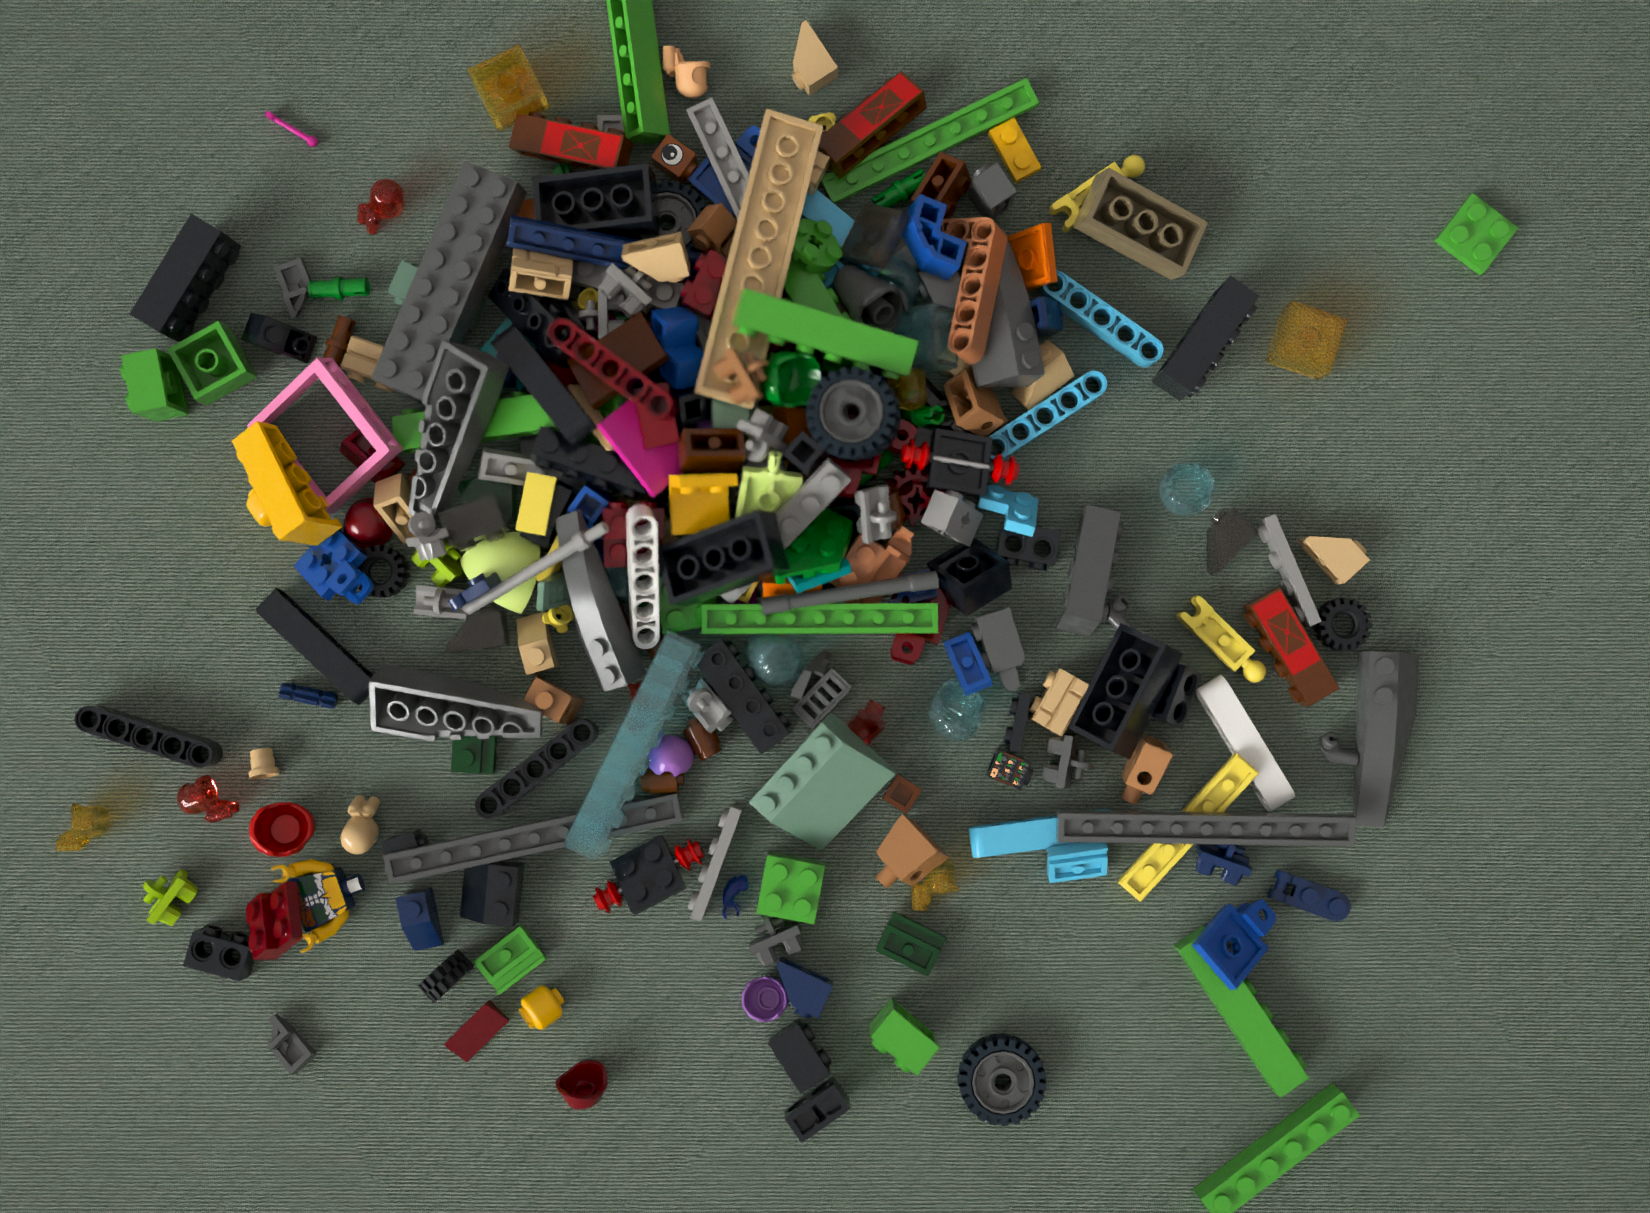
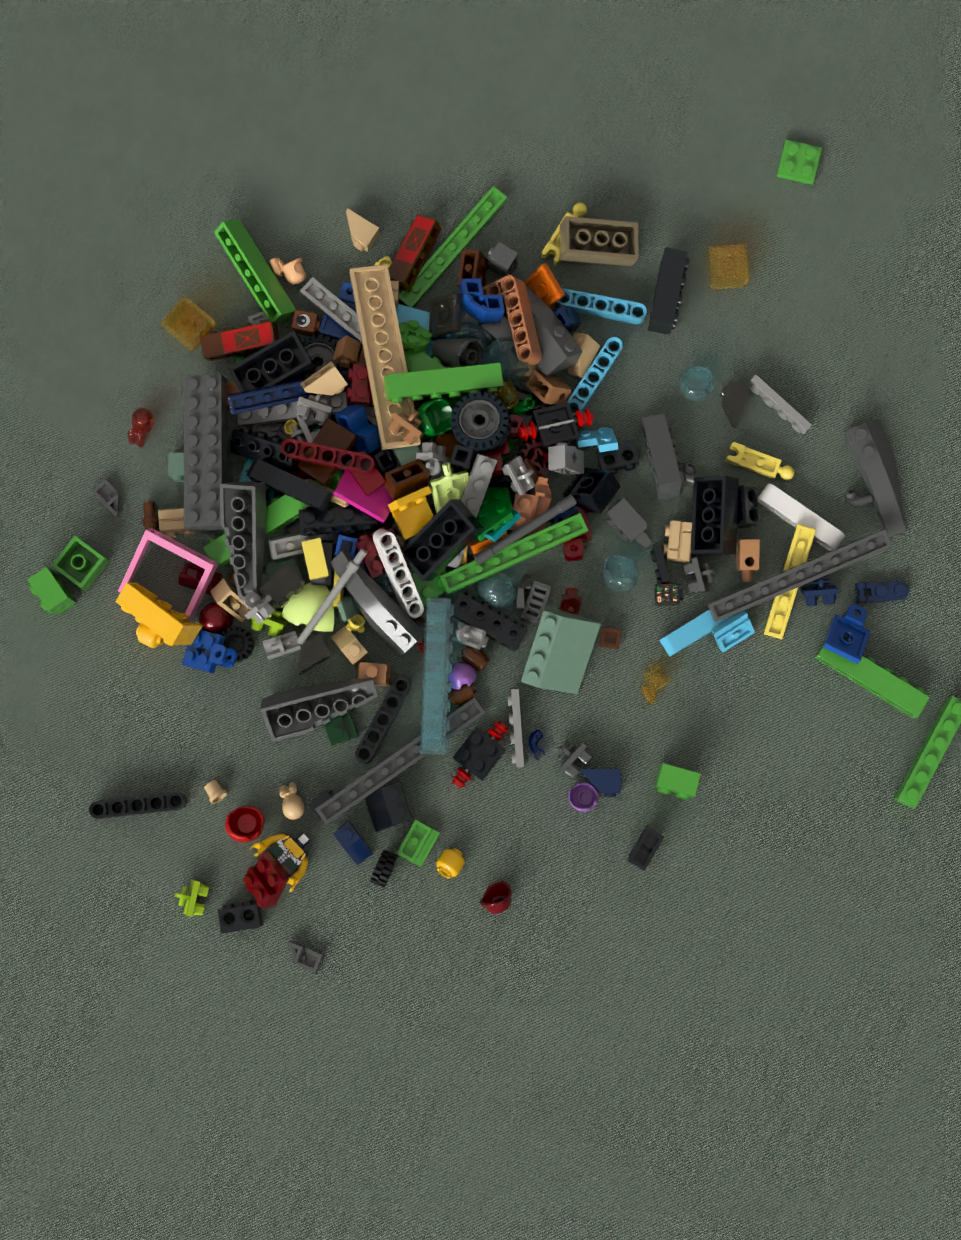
camera: 20 degrees left, 5 degrees down
(86, 824) = (124, 874): clear yellow piece -> none
(186, 279) = (44, 520): black brick -> none
(203, 797) = (186, 828): clear red piece -> none
(278, 337) = (112, 531): black slope -> none
(308, 695) = (224, 738): dark blue axle -> none
(312, 141) = (81, 407): dark pink hinge -> none
(316, 645) = (217, 705): black beam -> none
(339, 288) = (136, 486): green pin -> none
(477, 1031) = (417, 896): dark red slope -> none
(478, 586) = (301, 623): dark blue plate -> none
(540, 274) = (258, 422): tan brick -> none
(791, 887) = (568, 722): bright green brick -> none
(800, 1055) = (620, 822): black brick -> none
(900, 190) = (447, 283): green pin -> none
(908, 854) = (630, 671): medium nougat torso -> none
(910, 943) = (656, 725): dark green plate -> none
(967, 663) = (614, 542): blue plate -> none
(1001, 1102) = (763, 781): wheel -> none
(1014, 150) = (505, 231): yellow plate -> none
(1290, 647) = (801, 449): reddish brown brick -> none
(1335, 556) = (802, 384): tan slope -> none
(1359, 629) = (835, 415): black tyre -> none

